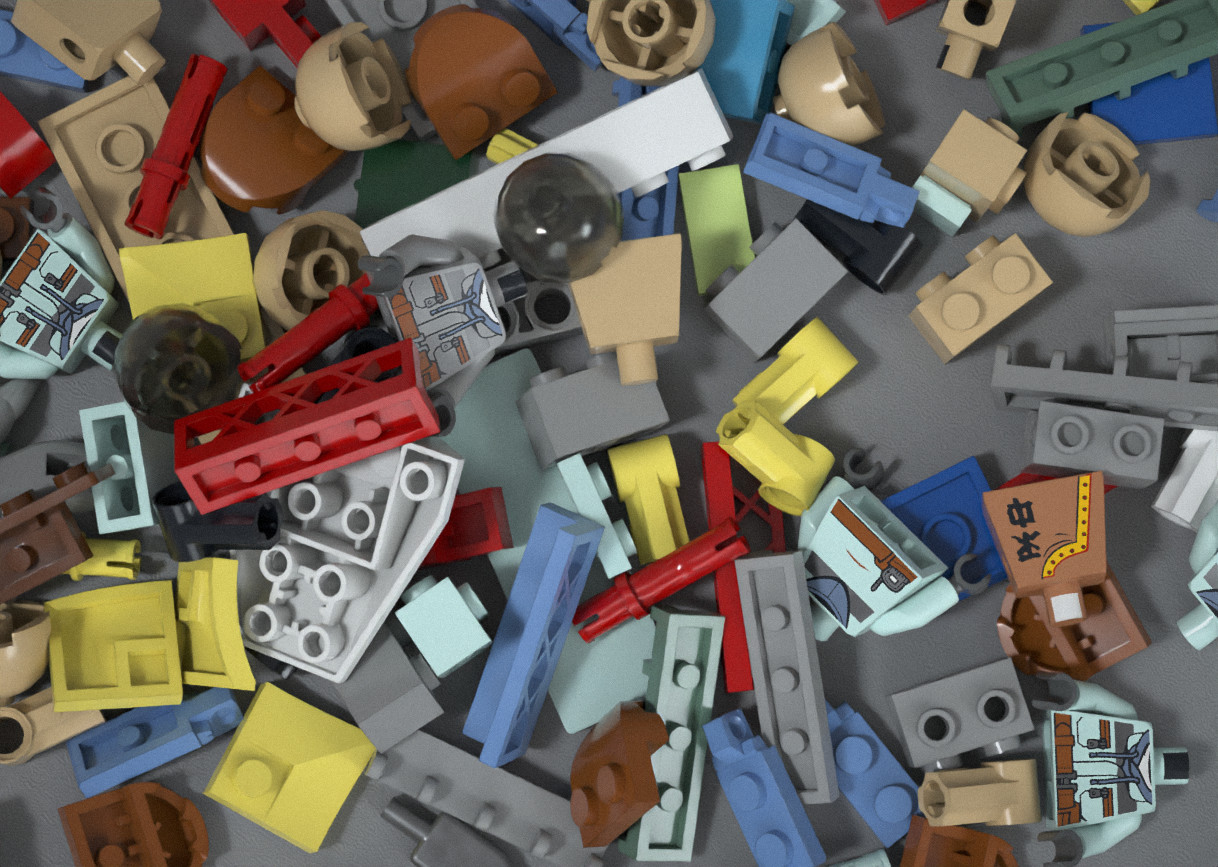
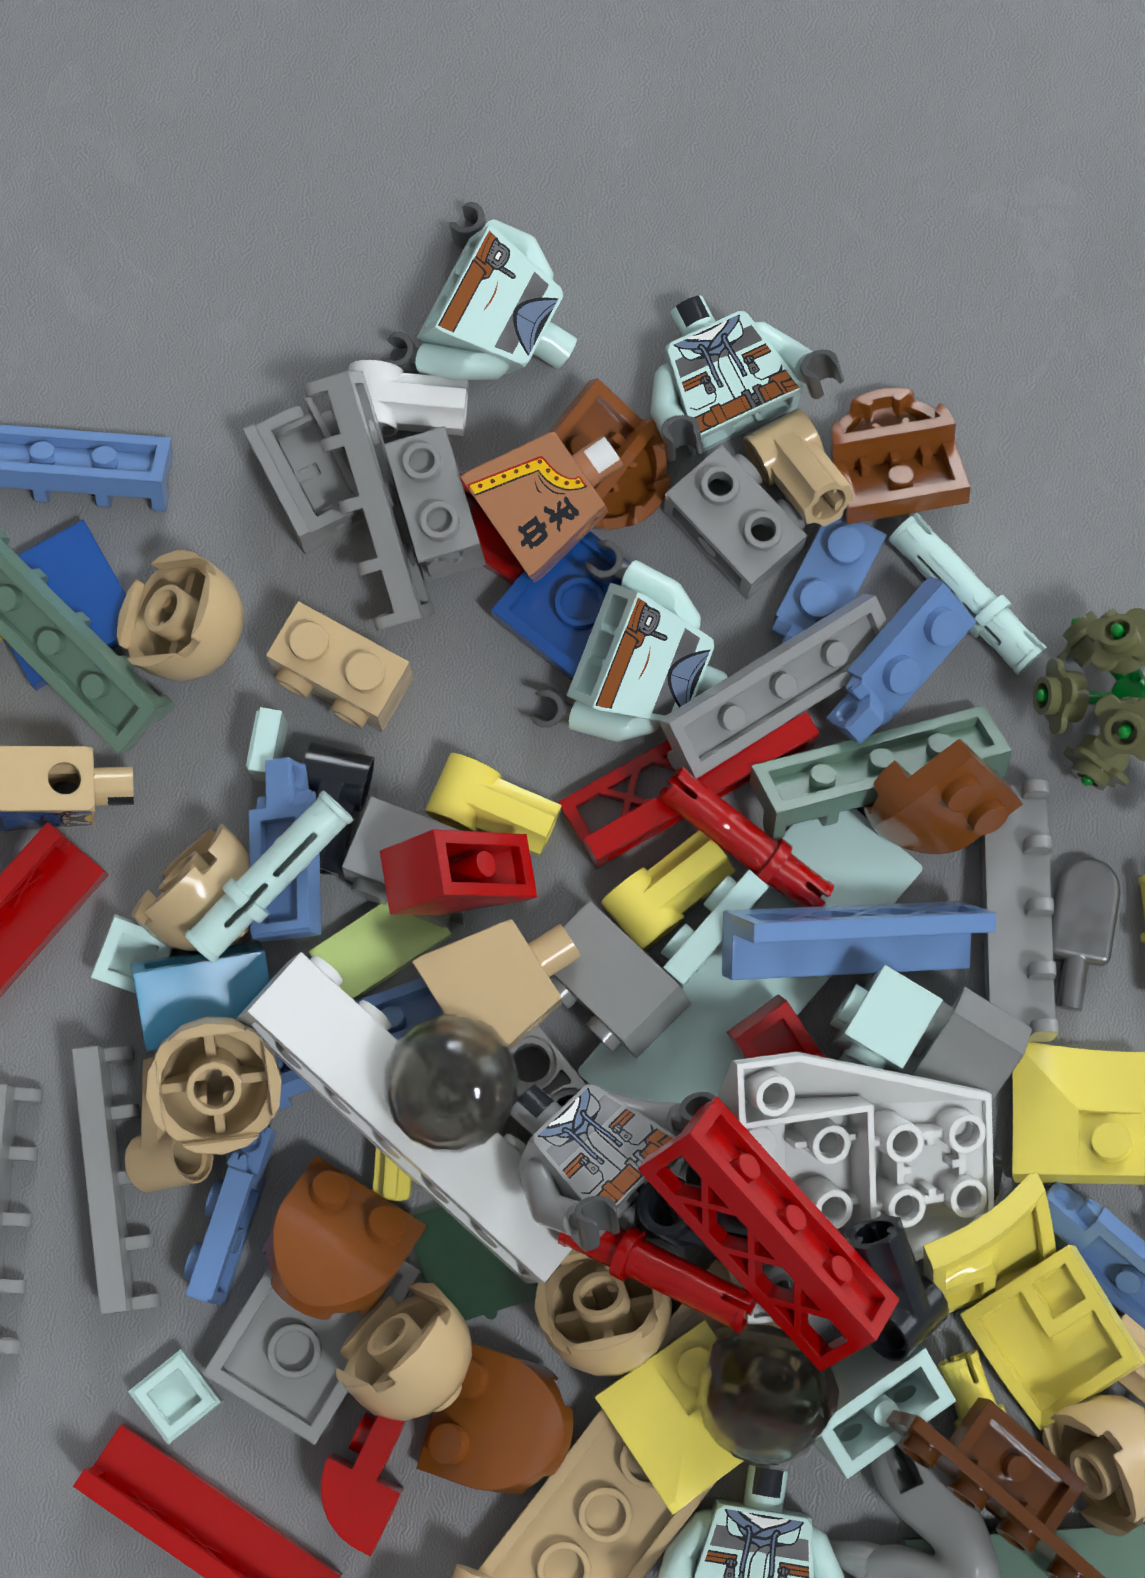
camera: 110 degrees left, 5 degrees down
(167, 168) = (553, 1509): red pin -> none
(742, 311) = (457, 872): none -> red slope
(784, 462) = (579, 777): light yellow piece -> none
(801, 122) = (267, 877): none -> light aqua pin
(978, 163) = (214, 720): tan brick -> none

